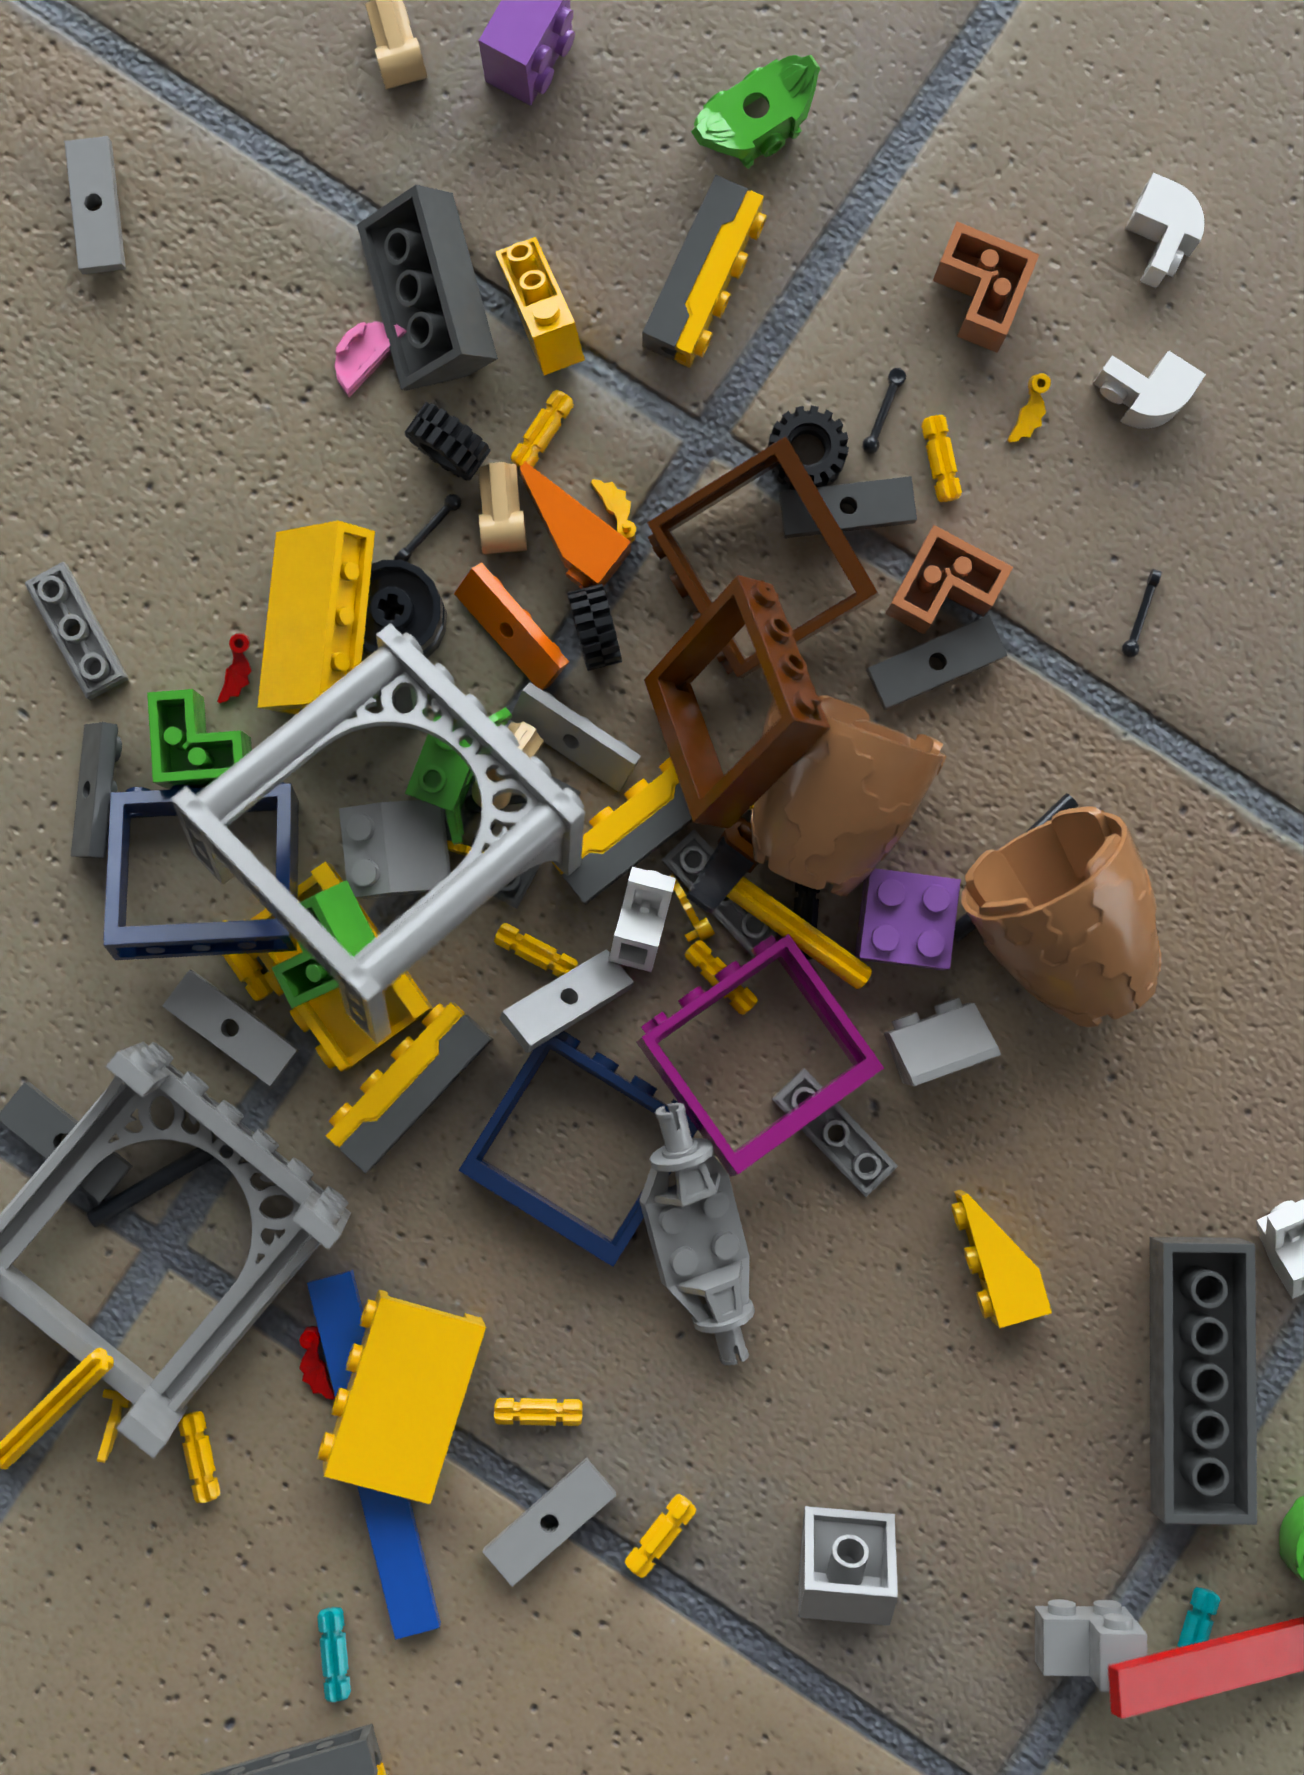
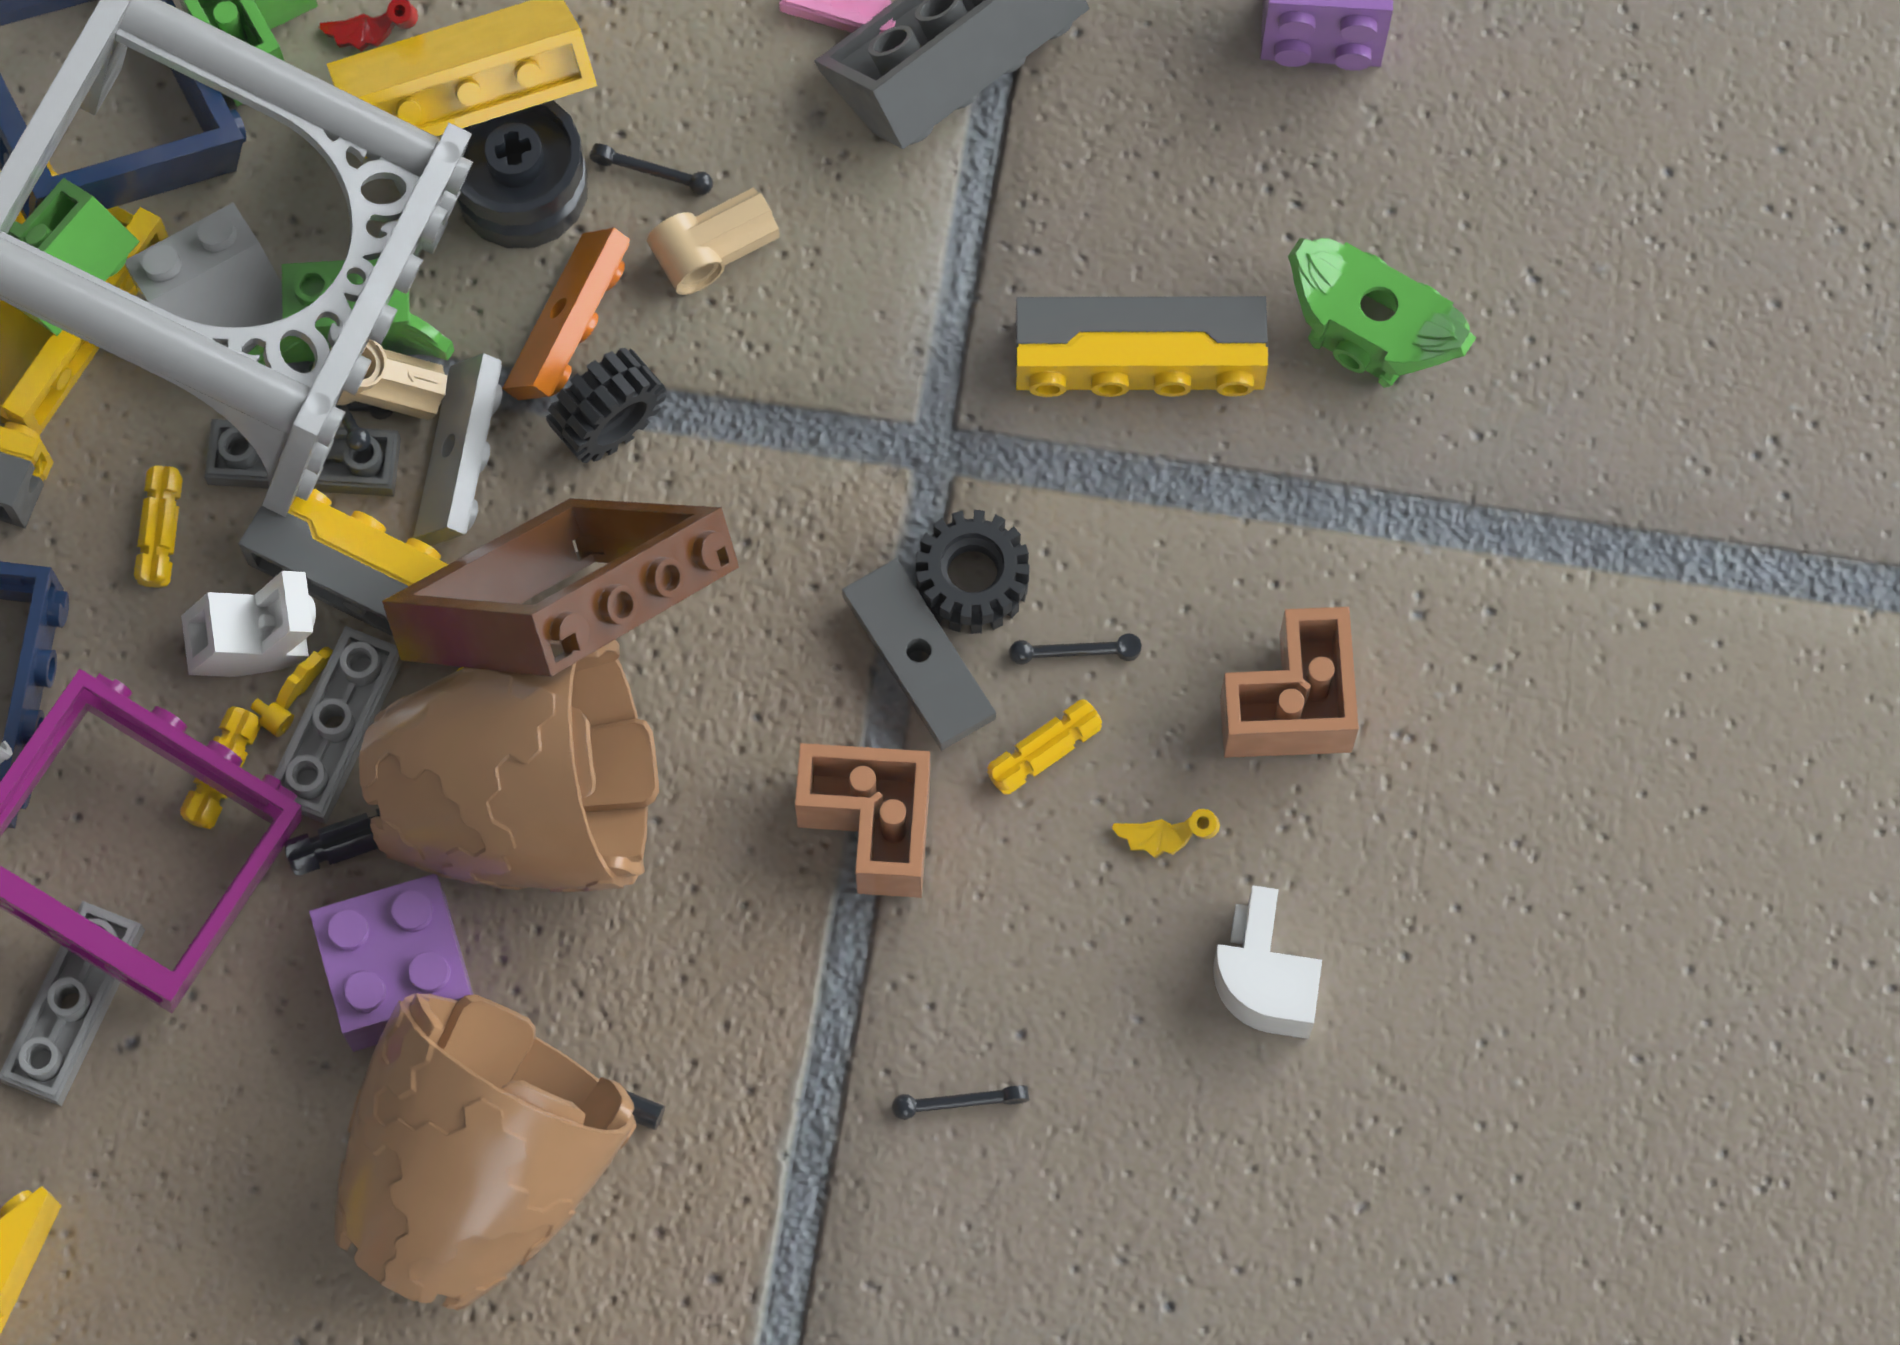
camera: 70 degrees right, 15 degrees down
(447, 441) = (763, 133): black tyre -> none
(540, 306) = (997, 173): yellow slope -> none
(542, 429) = (842, 246): yellow axle -> none
(583, 540) = (722, 337): orange slope -> none
(583, 988) = (69, 555): tile -> none
(617, 505) = (790, 377): yellow piece -> none
(688, 582) = (876, 607): reddish brown window -> none
(725, 867) = (339, 684): black piece -> none
(803, 934) = (317, 820): yellow axle -> none
(940, 1042) = (241, 1072): light grey slope -> none
(959, 651) = (736, 829): dark grey tile -> none
(1172, 219) = (1511, 902): white brick -> none

